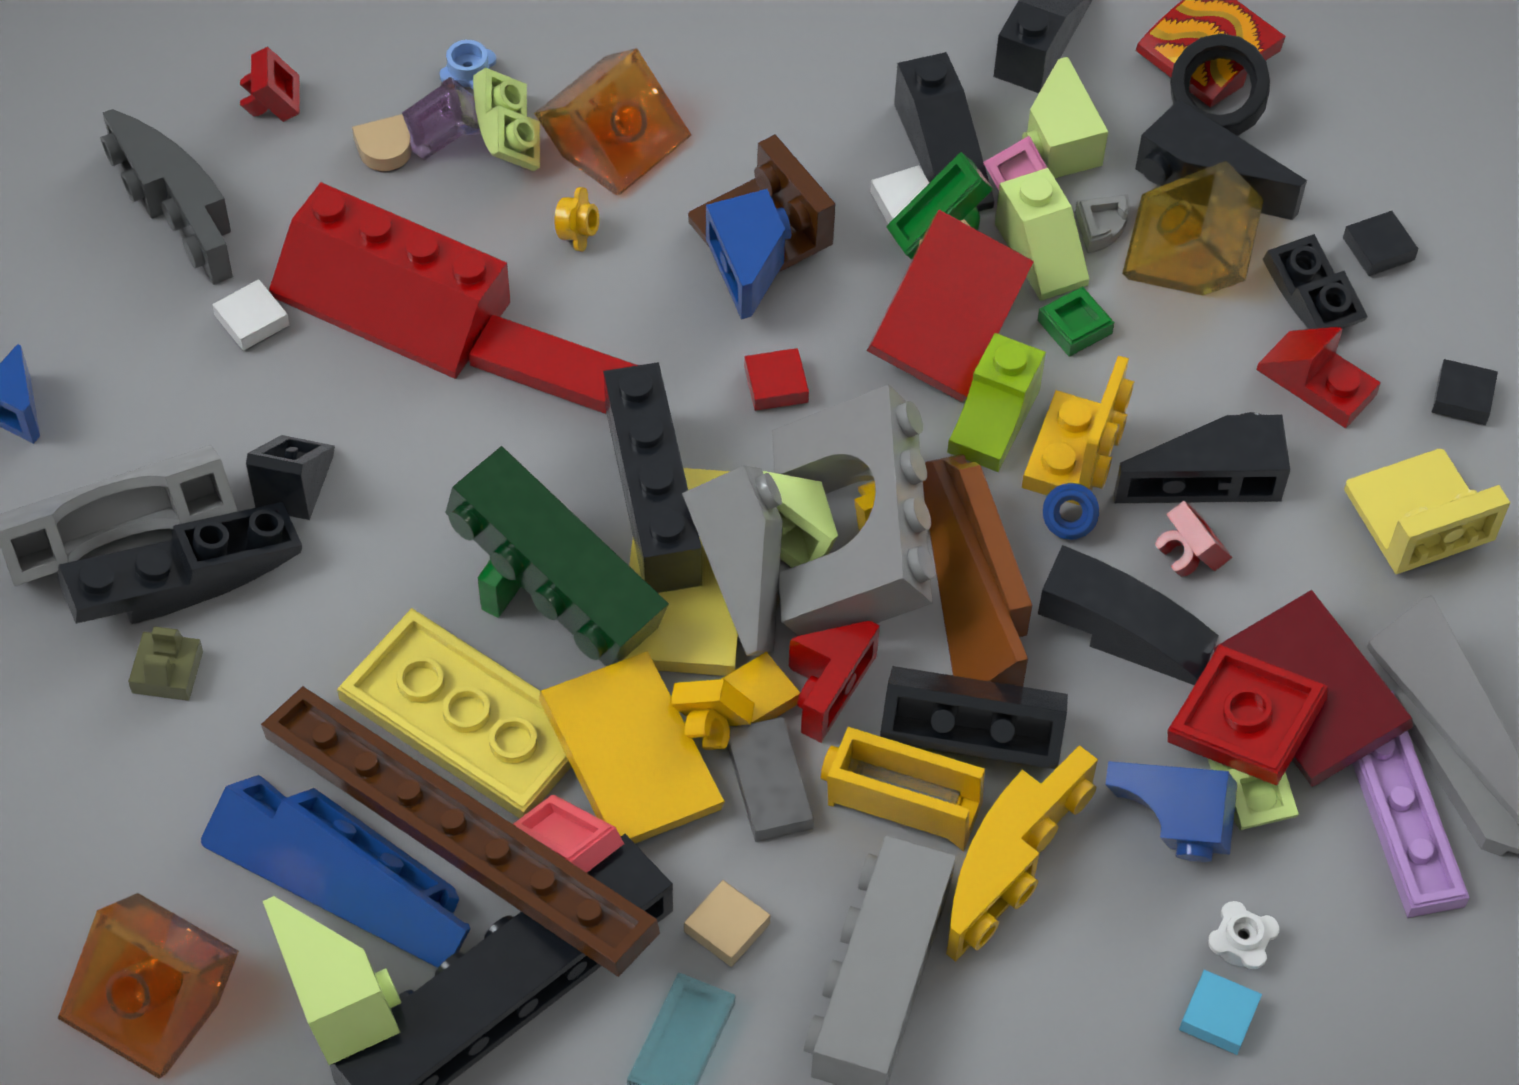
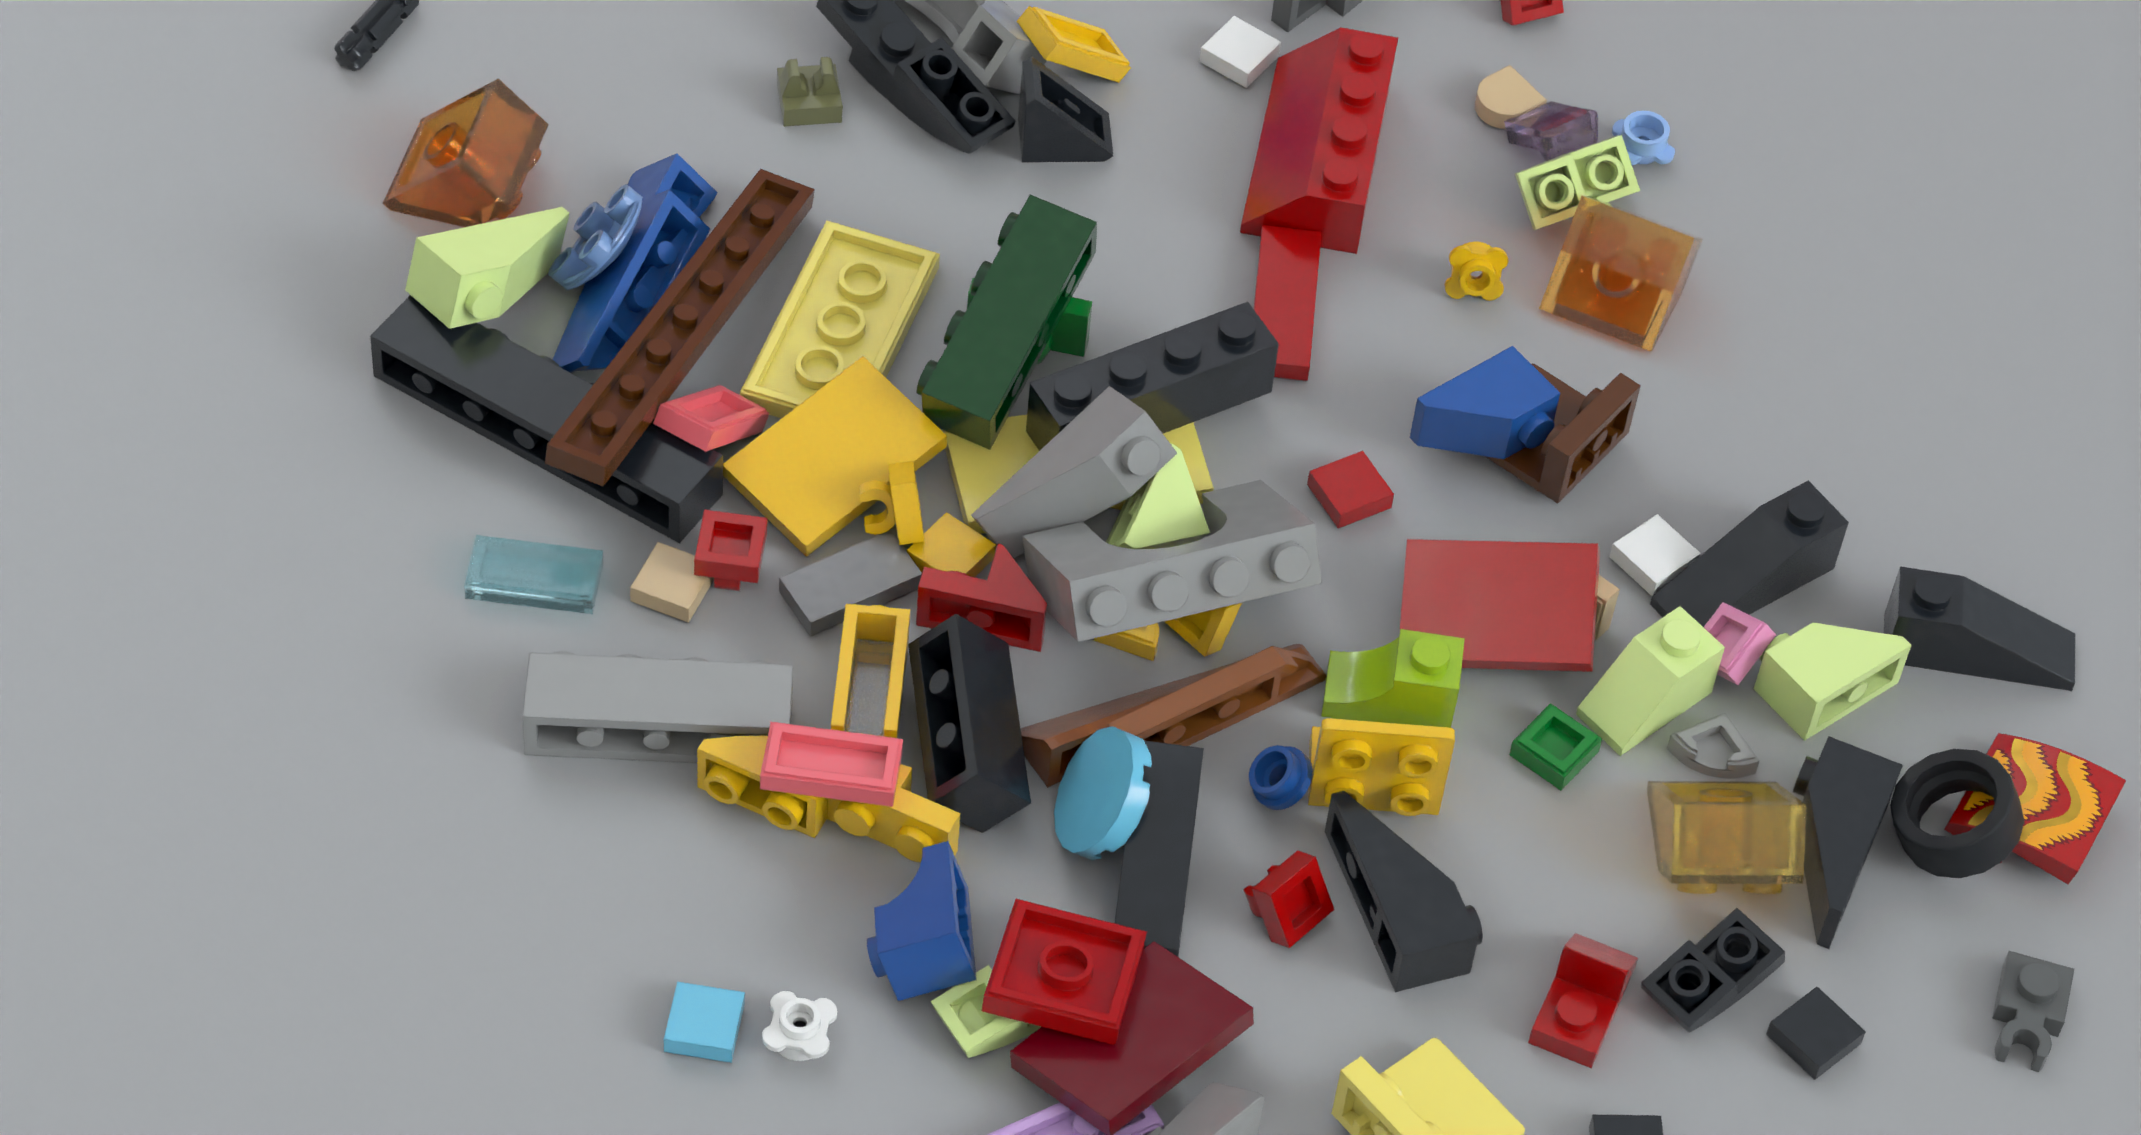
camera: 70 degrees right, 5 degrees down
(212, 428) = (1074, 44): none -> yellow tile
(314, 873) = (601, 238): none -> medium blue dish
(721, 857) = (730, 548): none -> red tile
(953, 191) = (1643, 578): green tile -> none
(1011, 828) = (831, 764): none -> coral tile
(1078, 635) = (1102, 793): none -> medium azure tile
(1380, 107) = (2032, 1003): none -> dark grey plate

